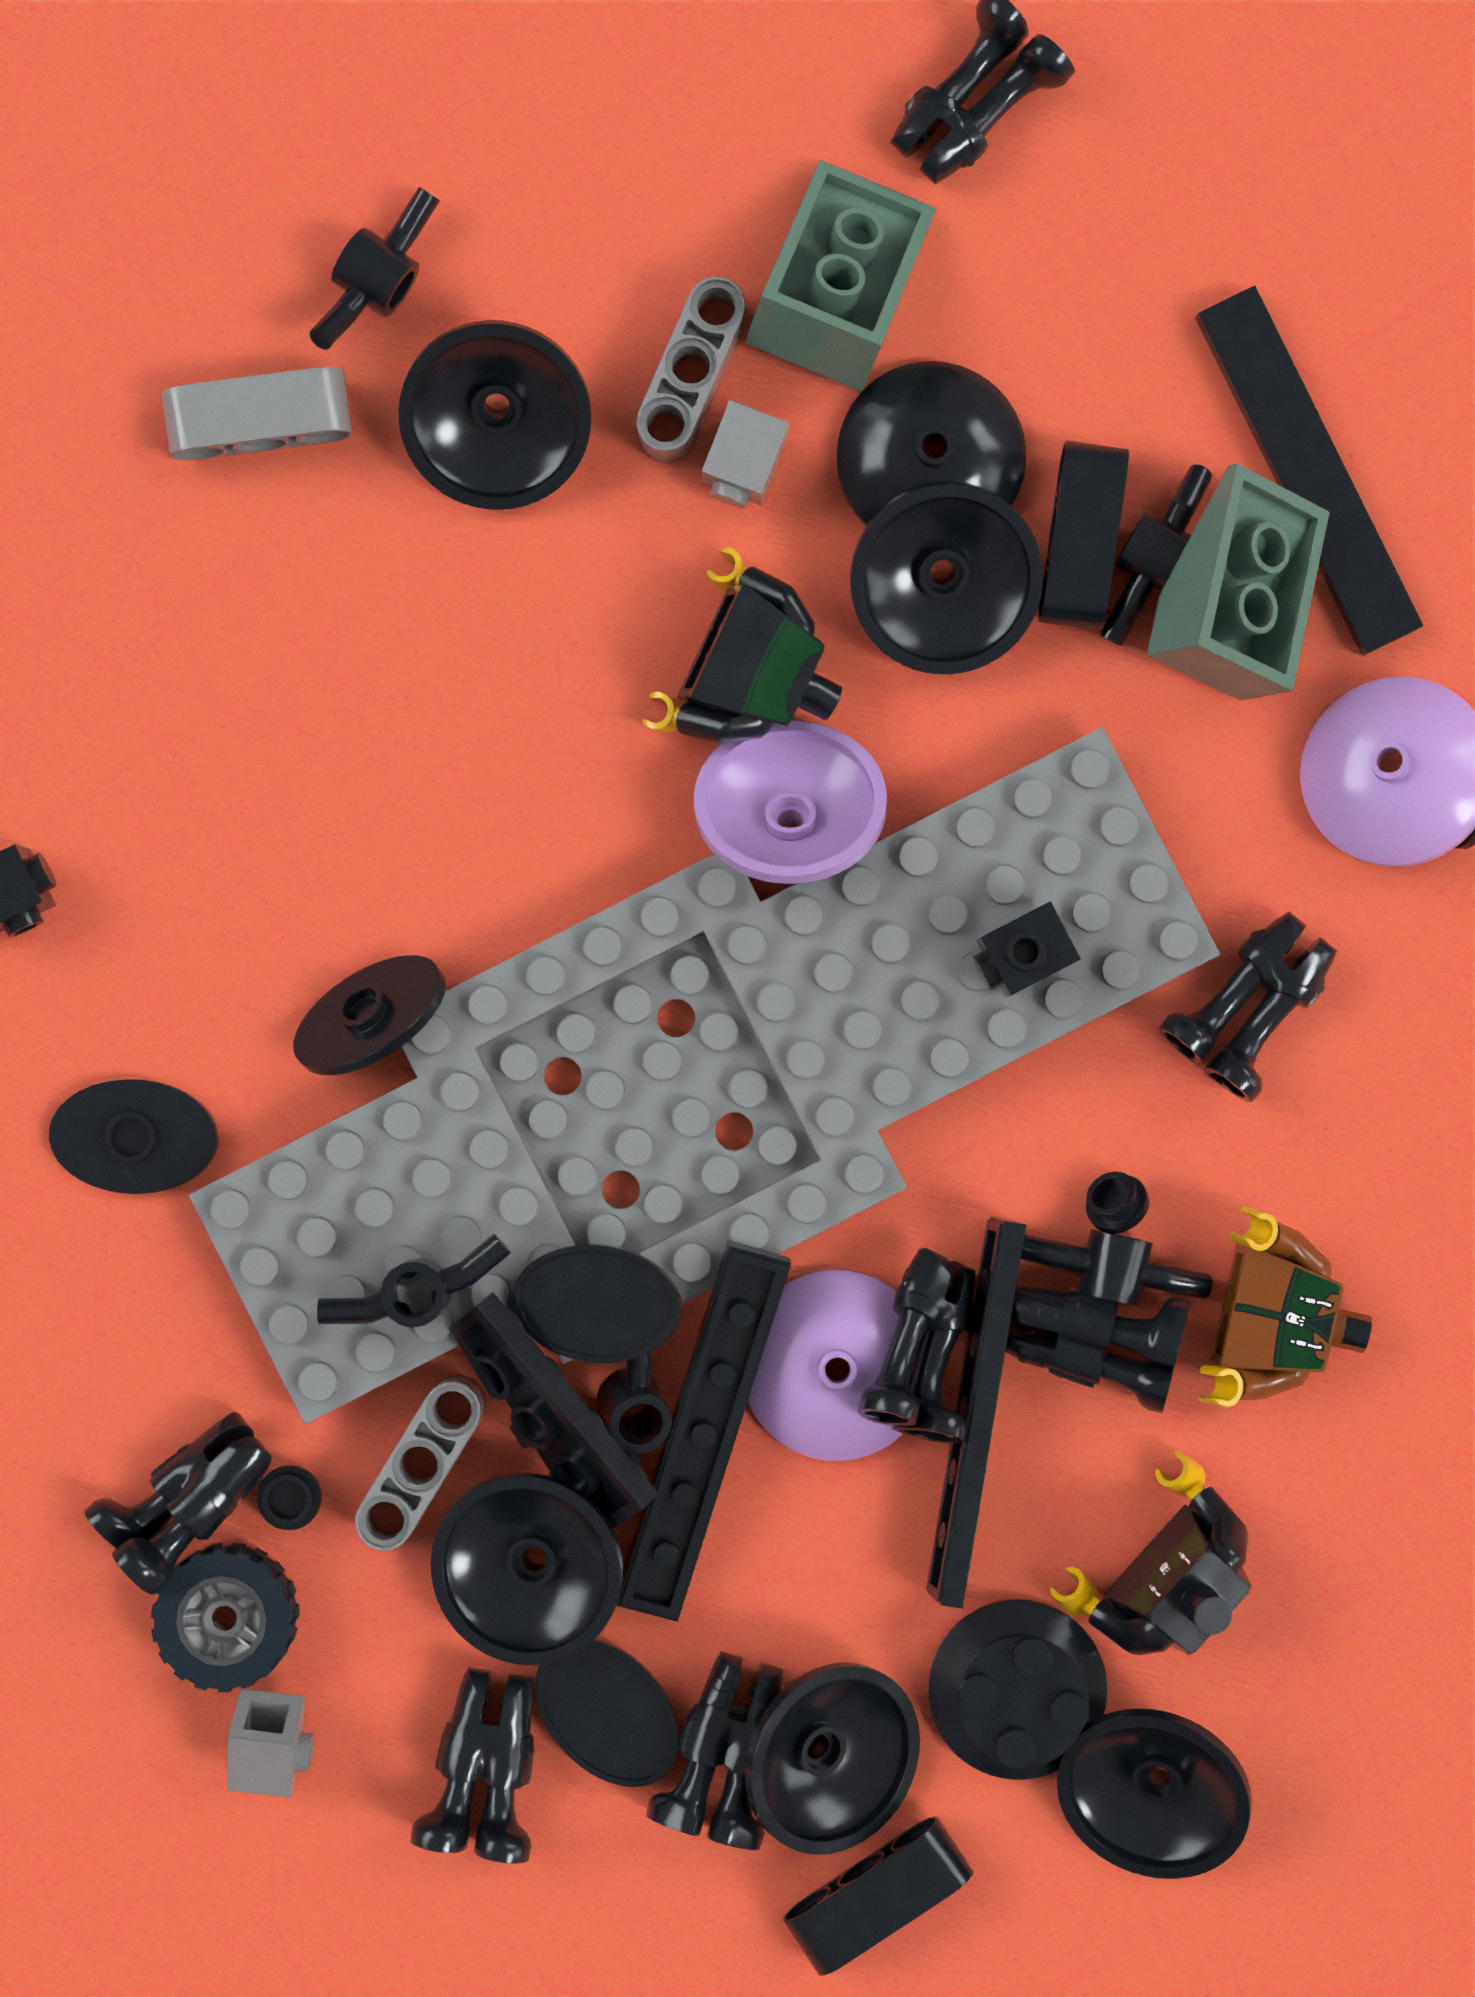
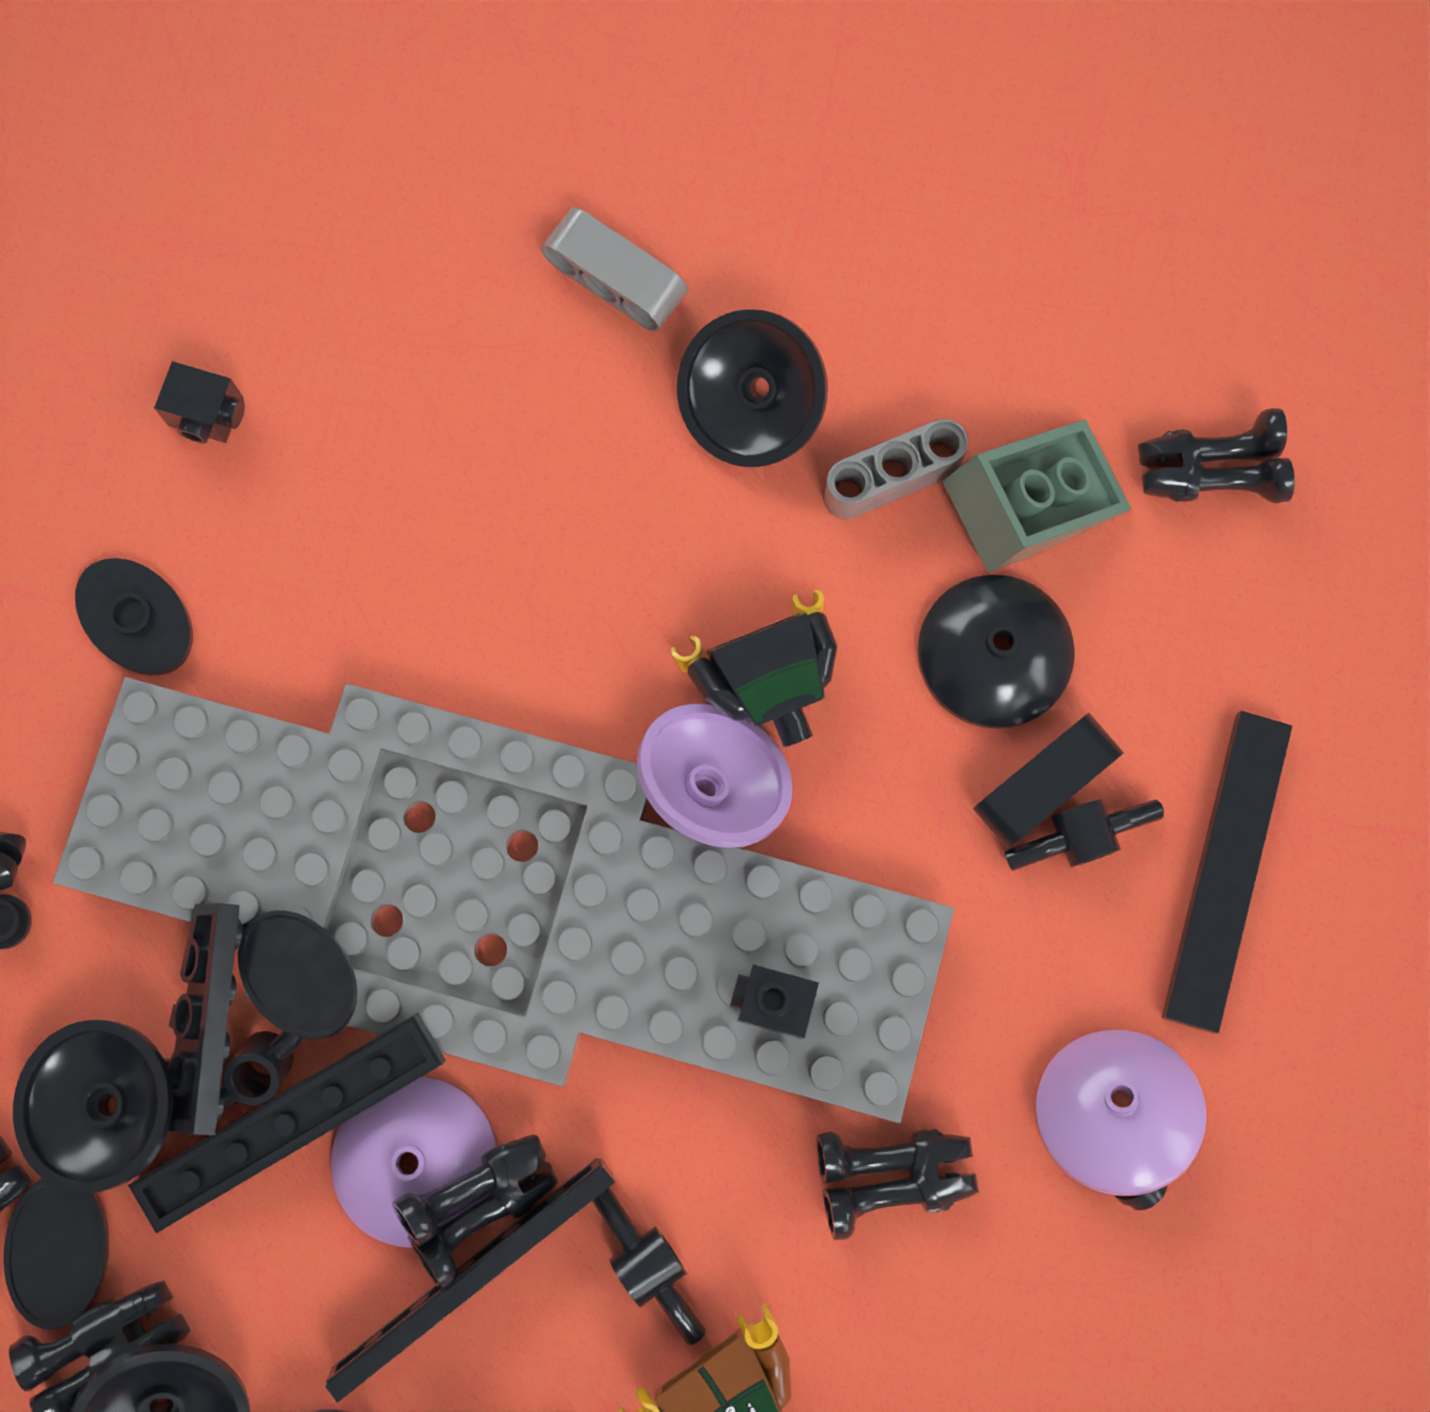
camera: 35 degrees right, 10 degrees down
(369, 1015) = (338, 670): black piece -> none
(375, 271) = (759, 250): black piece -> none
(387, 1303) = (172, 850): black piece -> none
(399, 1485) = (73, 975): light grey beam -> none
(744, 455) = (881, 544): light grey brick -> none
(954, 620) = (929, 764): black dish -> none
(1073, 1334) = (583, 1285): black piece -> none
(1116, 1202) = (688, 1224): black plate -> none
(1242, 589) = (1121, 901): sand green slope -> none

